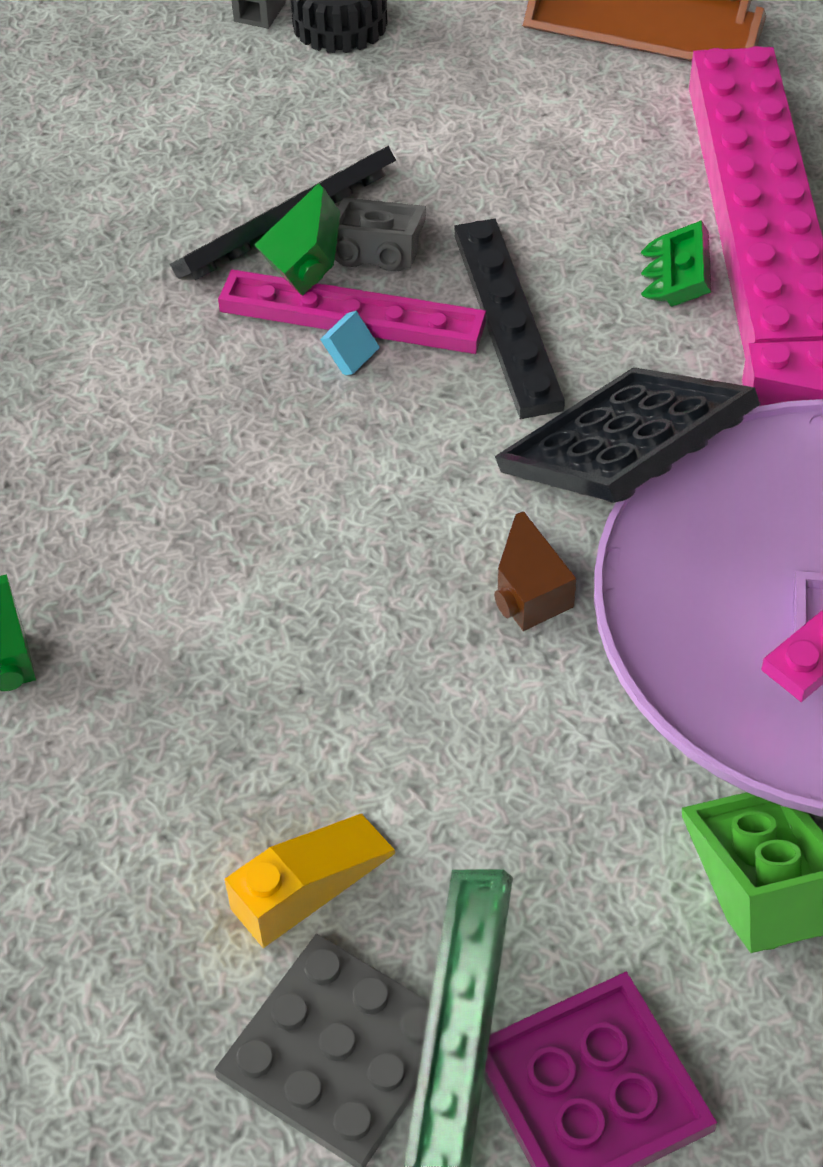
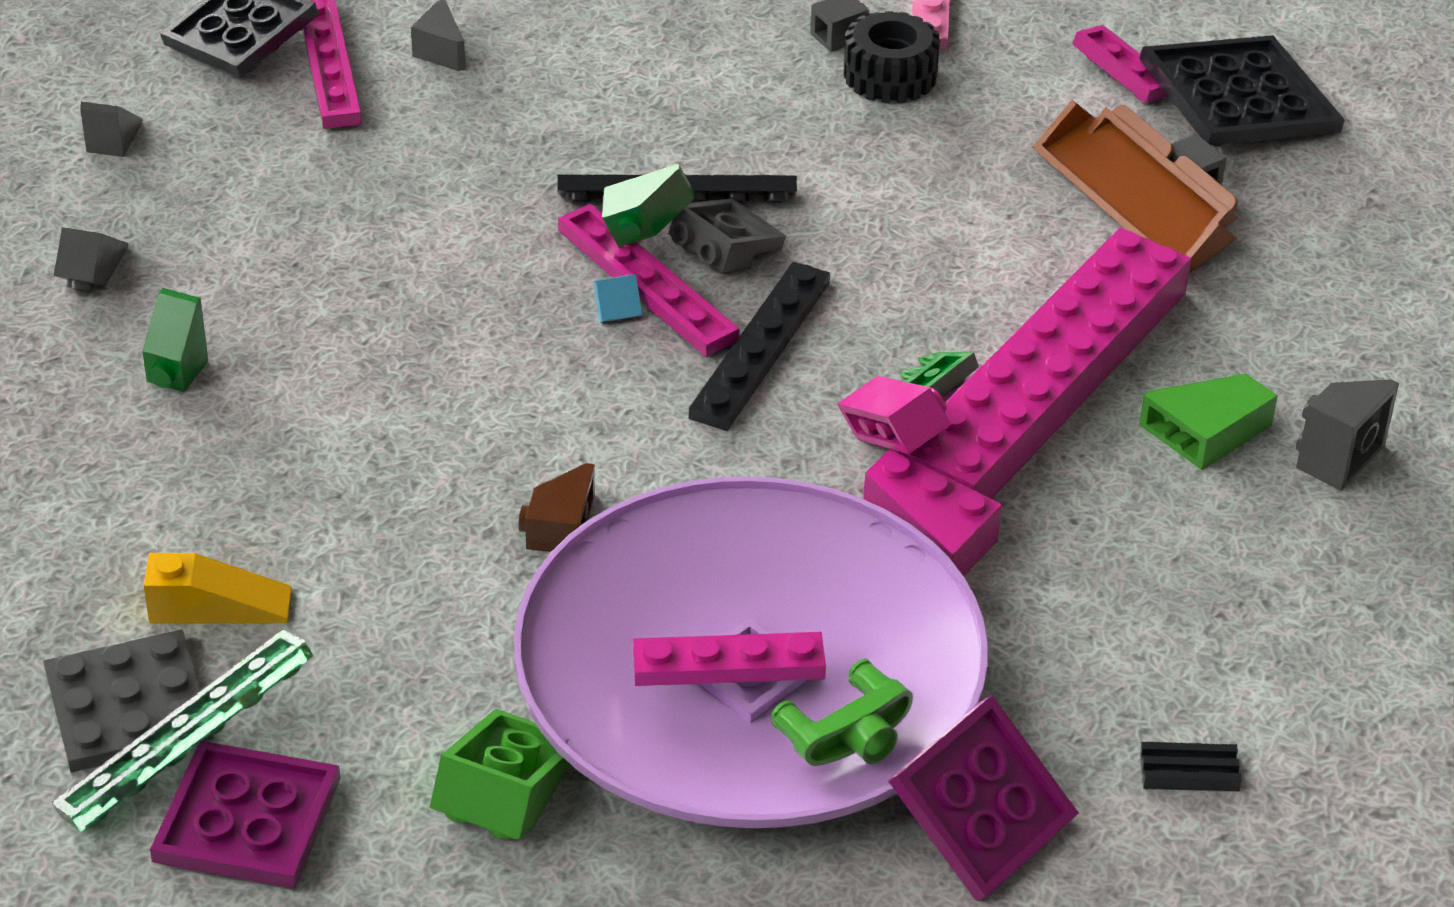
camera: 35 degrees right, 10 degrees down
(627, 433) = (721, 452): black plate -> none
(723, 309) = (895, 414): none -> dark pink brick

